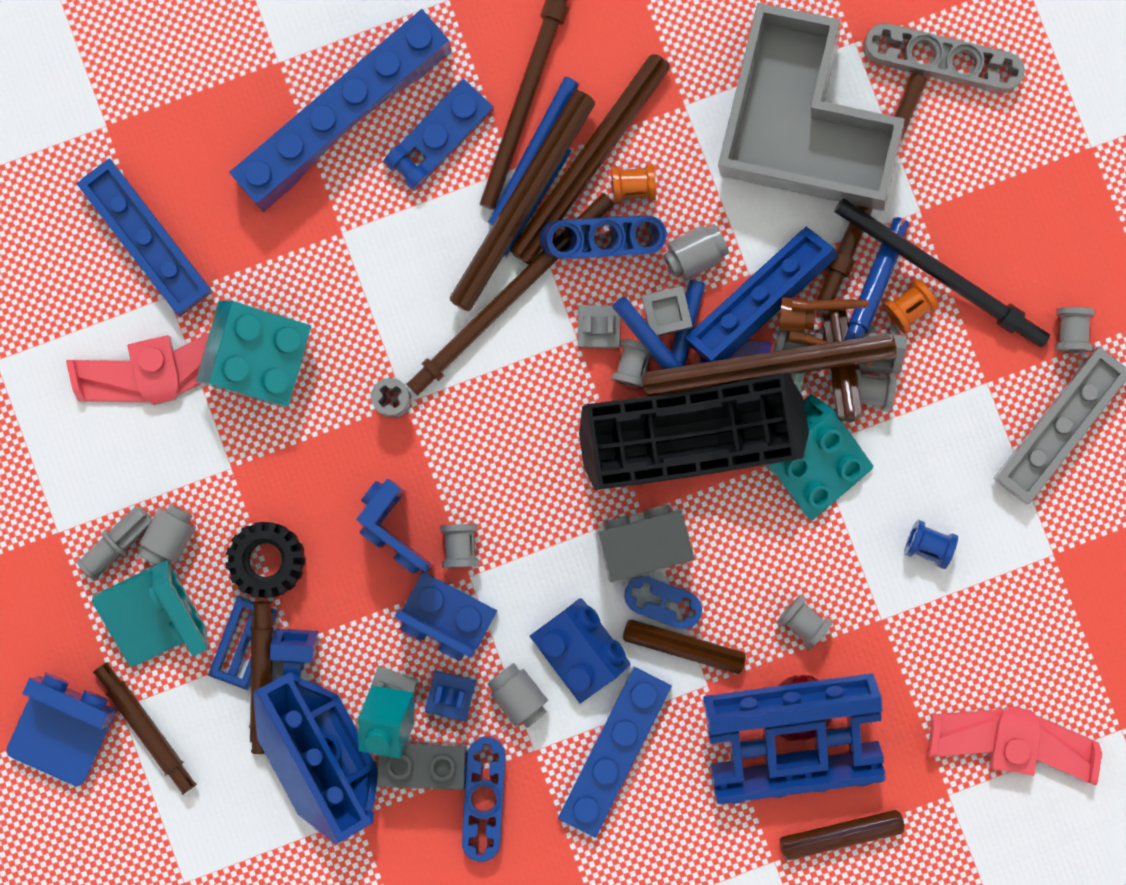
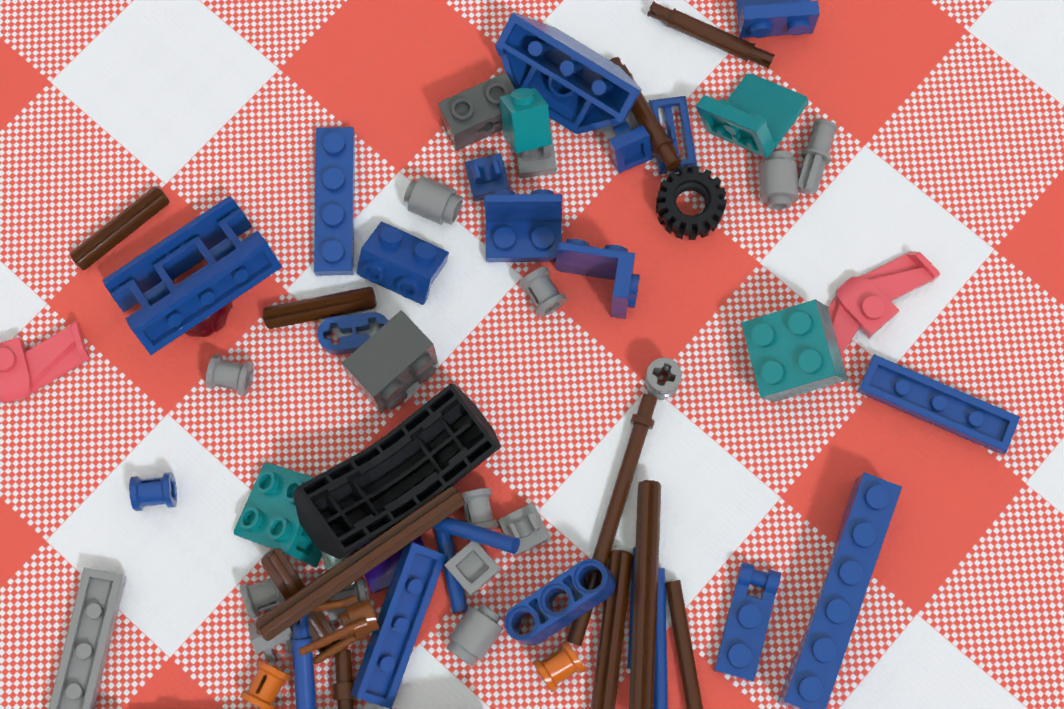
camera: 155 degrees right, 10 degrees down
(471, 829) = (418, 87): blue beam -> none

